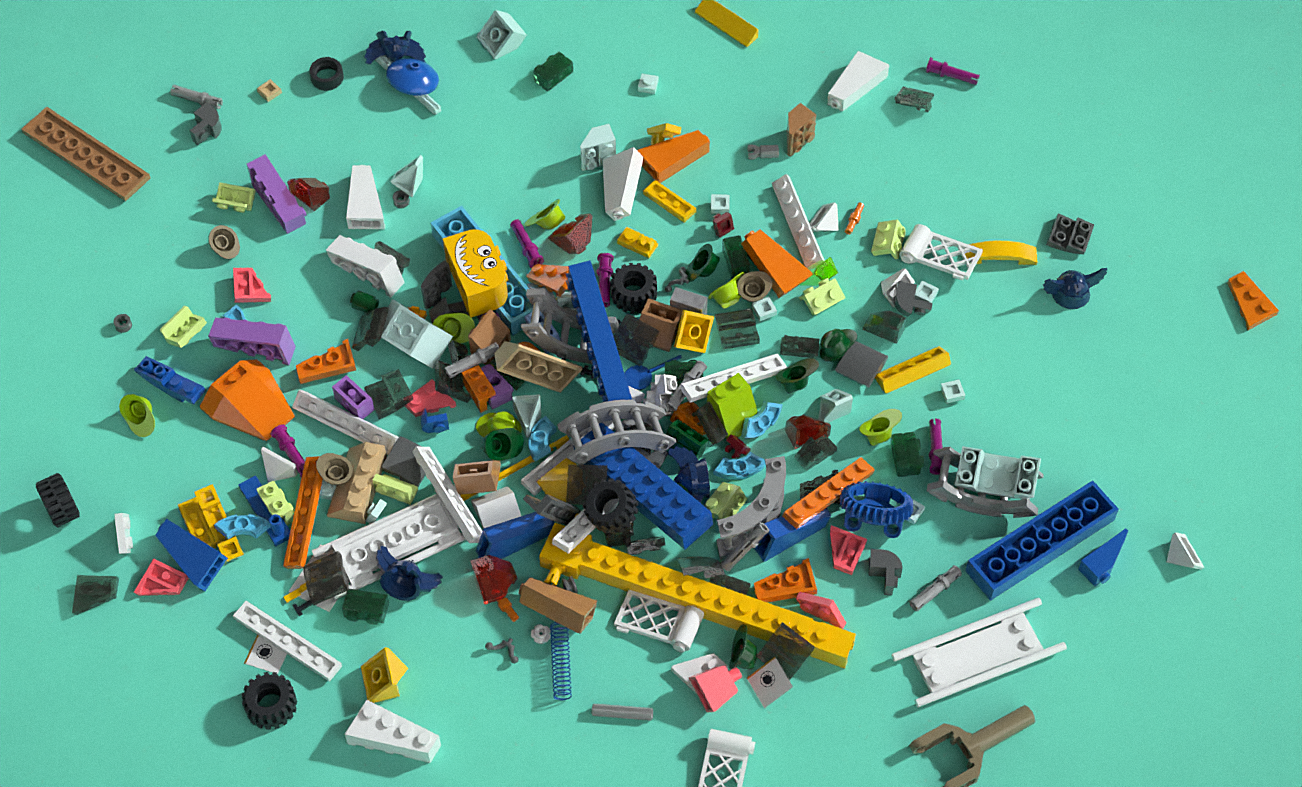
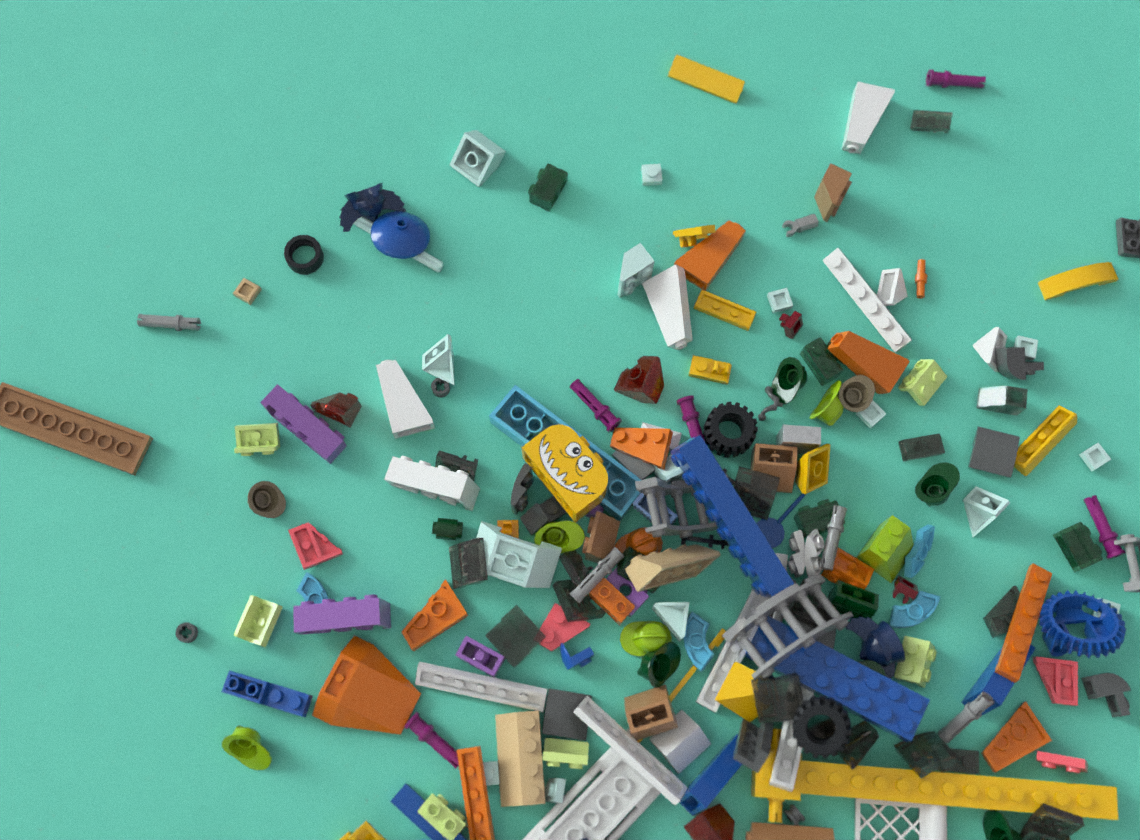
camera: 20 degrees left, 15 degrees up
(207, 124) = (195, 352): dark grey brick -> none
(277, 466) = (424, 766): white slope -> none
(334, 468) = (495, 758): dark tan piece -> none
(548, 217) = (605, 367): lime piece -> none
(711, 423) = (874, 575): clear smoke plate -> none
(737, 329) = (850, 445): clear smoke slope -> none
(751, 372) = (876, 513): white plate -> none
(763, 509) = (968, 670): light grey fence -> none
(803, 427) = (967, 549): clear red slope -> none
(815, 451) = (984, 570): clear smoke slope -> none
(826, 269) = (915, 349): clear neon green slope -> none
(836, 343) = (960, 434): dark green piece -> none
(880, 426) = (1044, 520): lime piece -> none
(888, 238) = (964, 294): yellowish green bracket -> none
(921, 239) = (998, 290): white piece -> none

